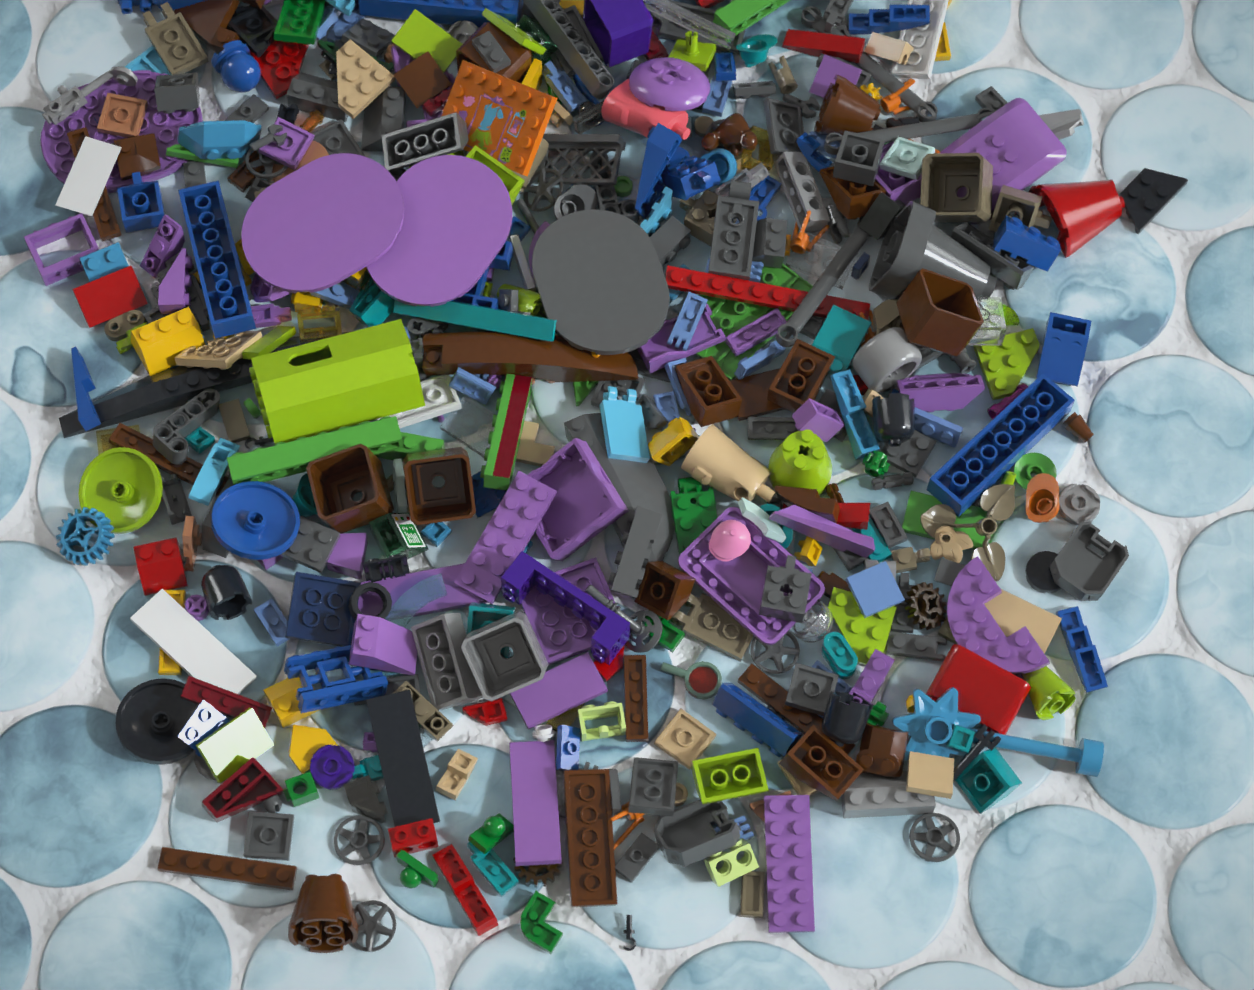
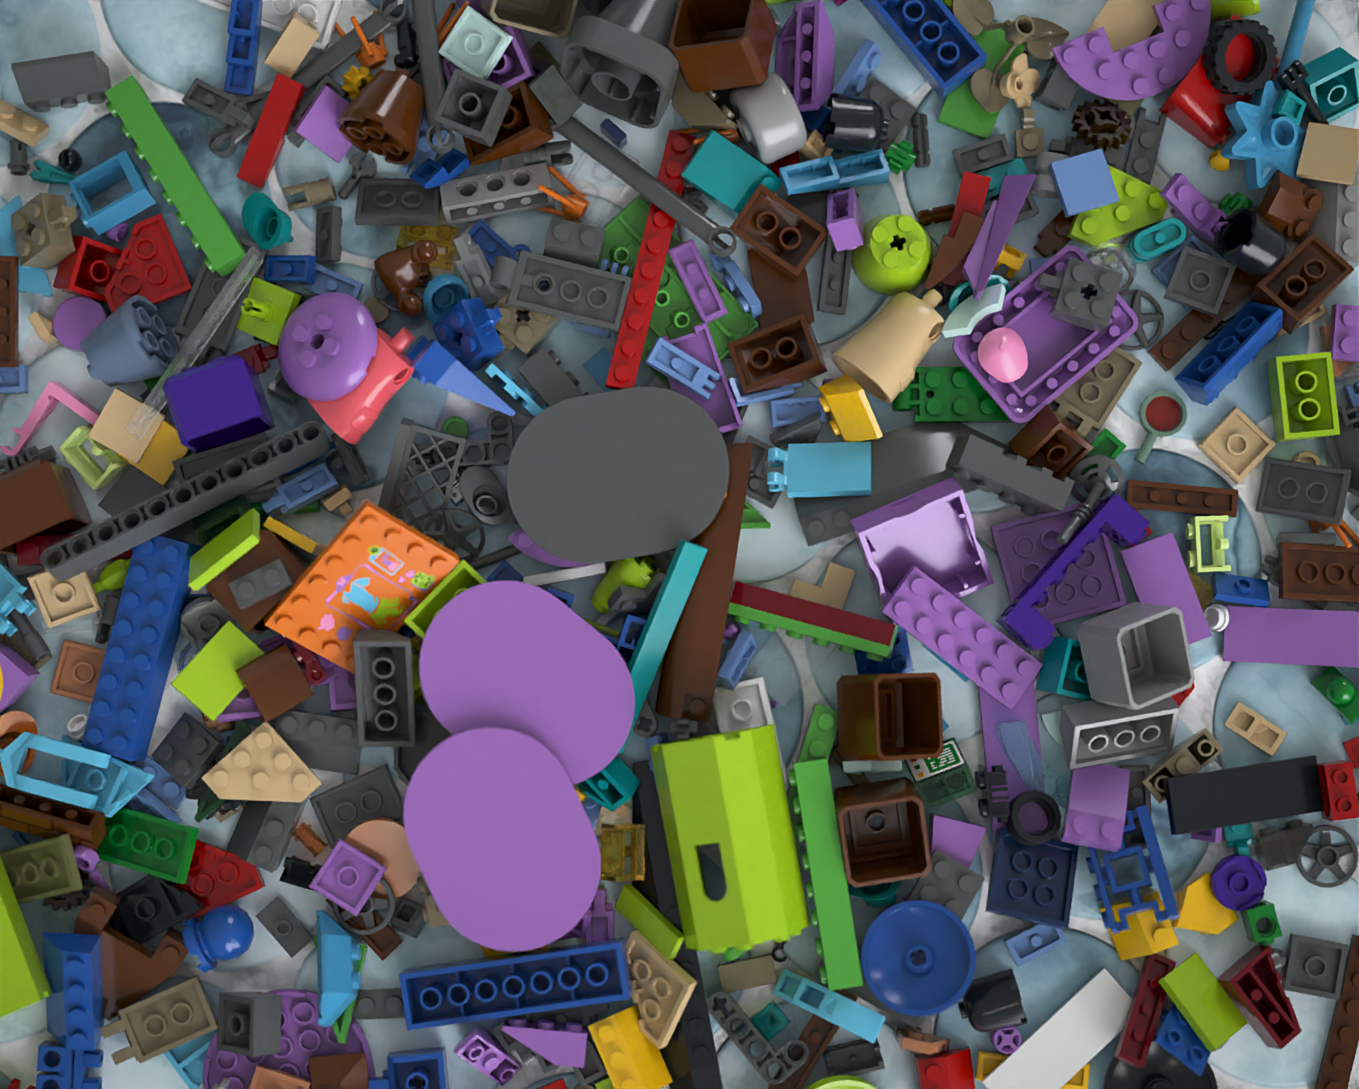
camera: 80 degrees left, 20 degrees up
(270, 138) = (344, 901): dark grey bar -> none
(993, 713) = (1263, 57): none -> black tyre

